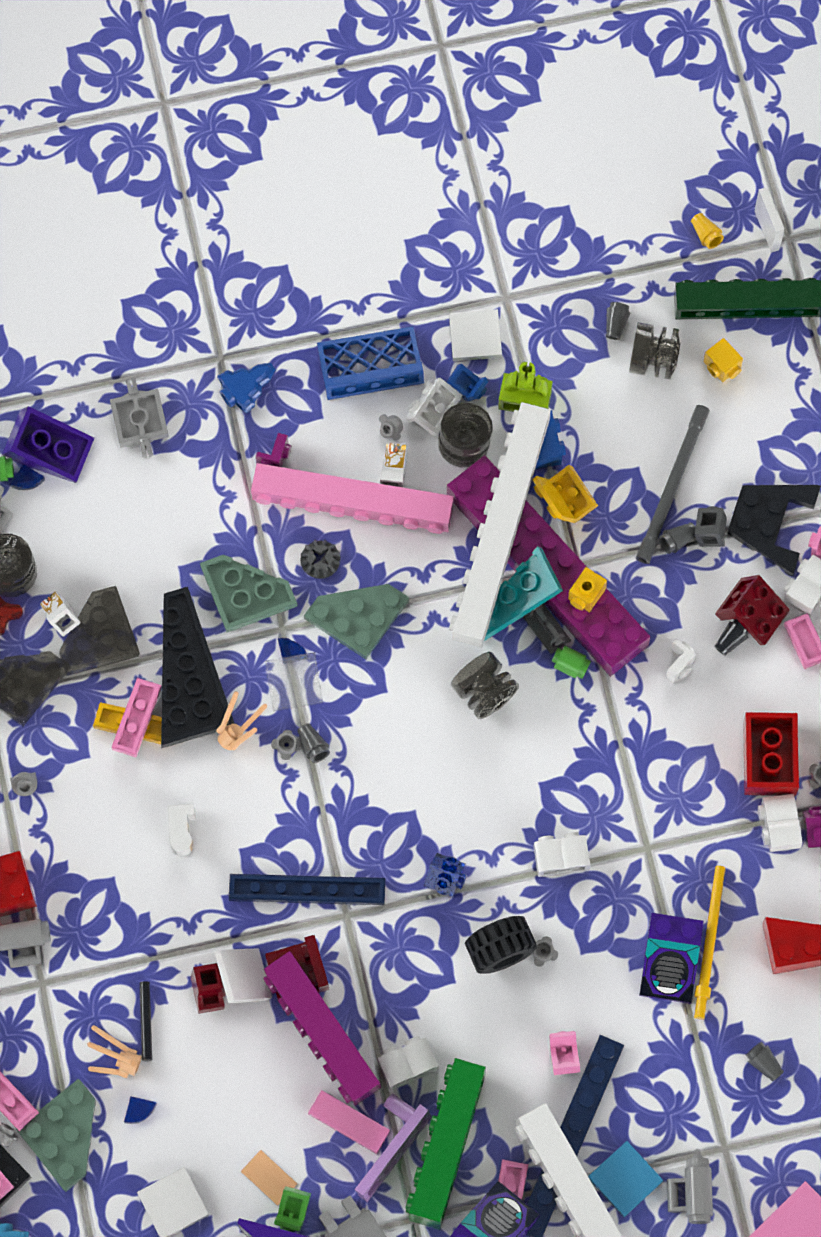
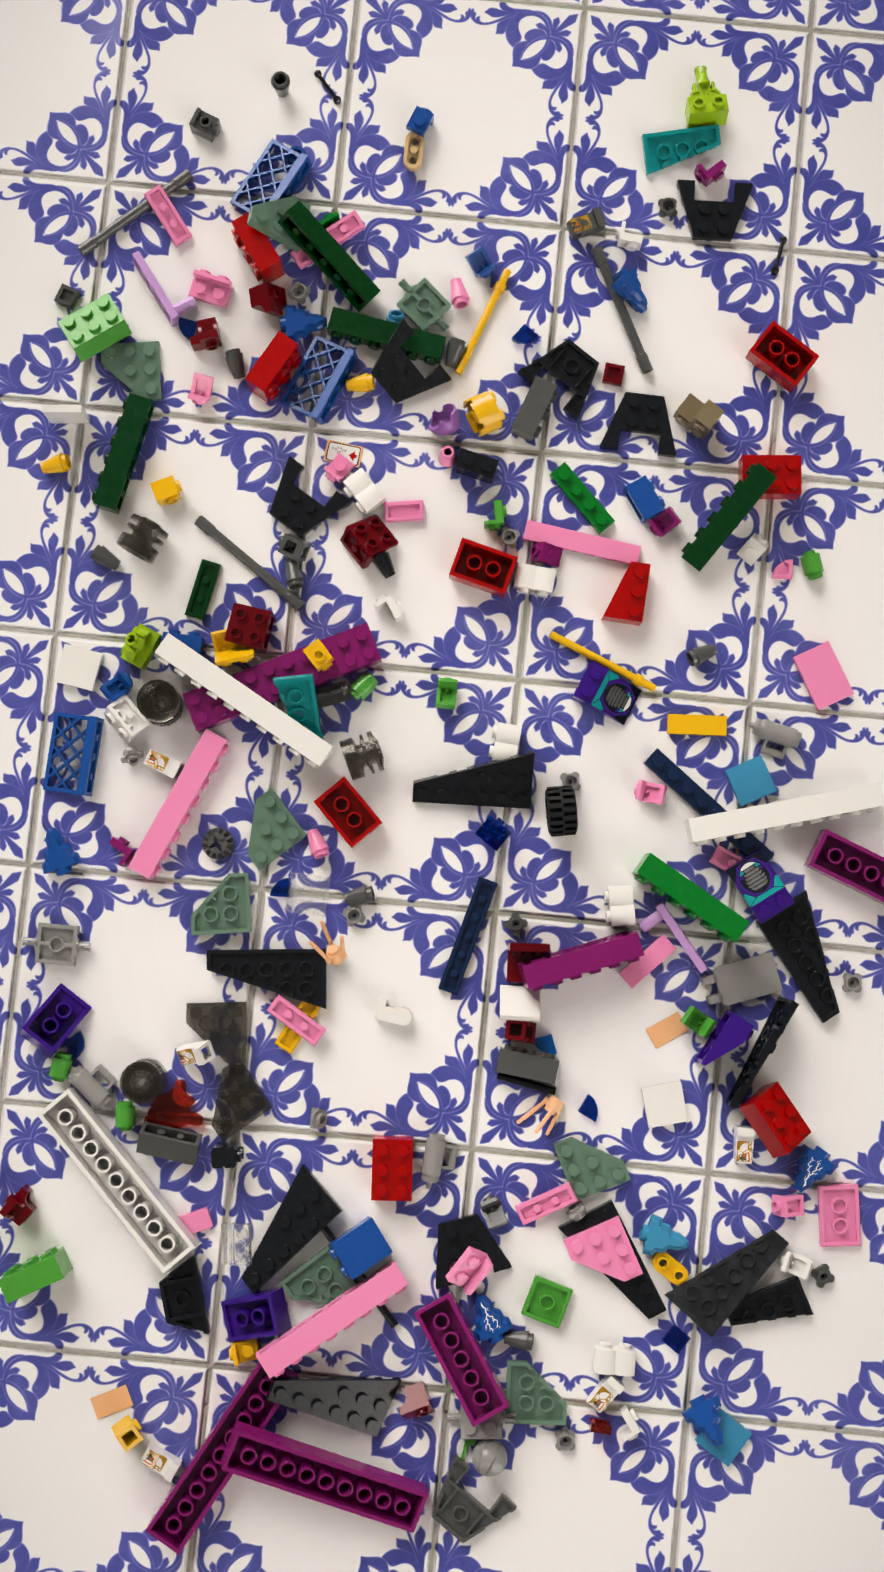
camera: 75 degrees left, 15 degrees up
(170, 1012) = (527, 1064): none -> dark grey brick
(202, 1029) = (546, 1044): none -> clear blue tile
(334, 945) = (515, 918): none -> dark grey plate
(357, 673) = (317, 844): none -> bright pink cone
(410, 693) = (348, 812): none -> red brick
(503, 849) = (486, 784): none -> black wing
(594, 508) = (250, 627): none -> dark red bracket
(598, 763) = (446, 693): none -> bright green bracket
(620, 442) = (203, 589): none -> dark green tile
(672, 1086) = (696, 725): none -> yellow tile

